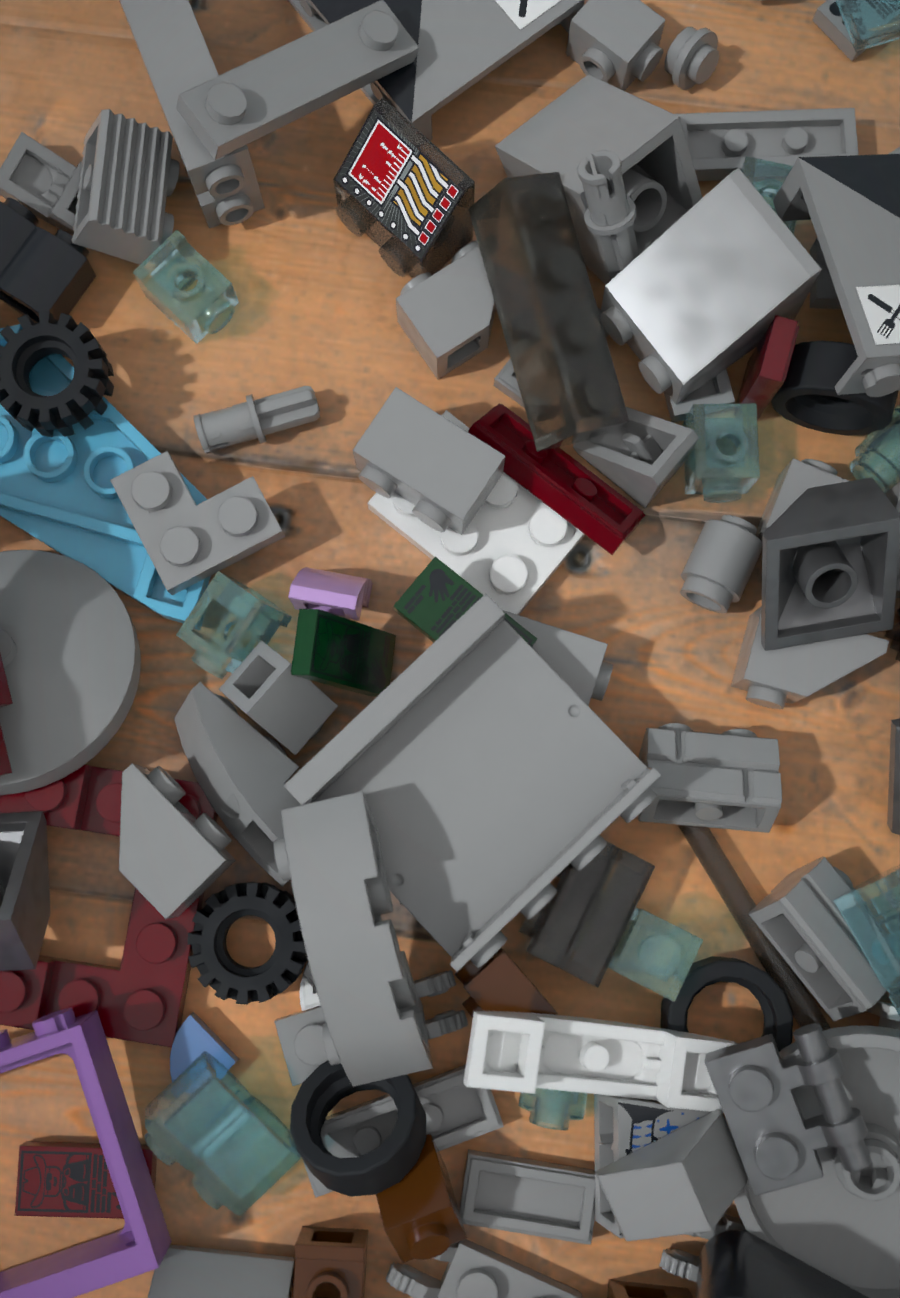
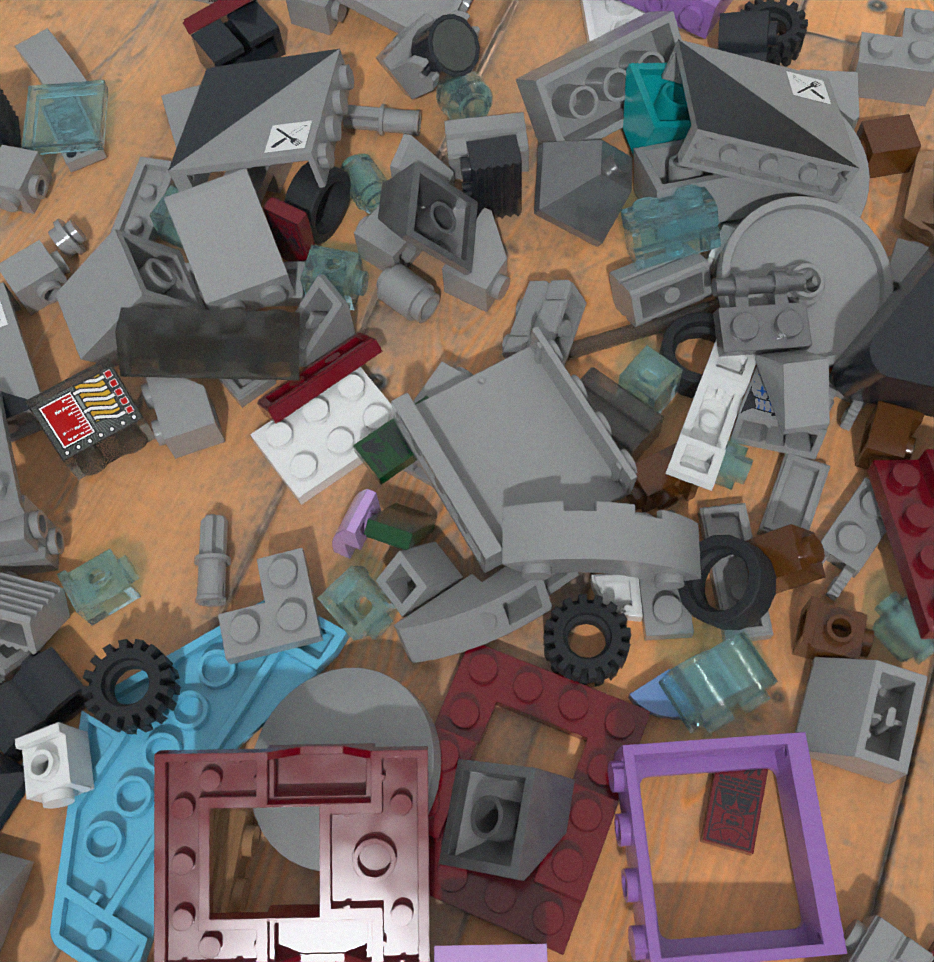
camera: 70 degrees left, 15 degrees down
(163, 845) = (505, 671): light grey slope -> none
(427, 463) = (286, 441): light grey brick -> none
(609, 210) = (160, 280): light grey axle -> none

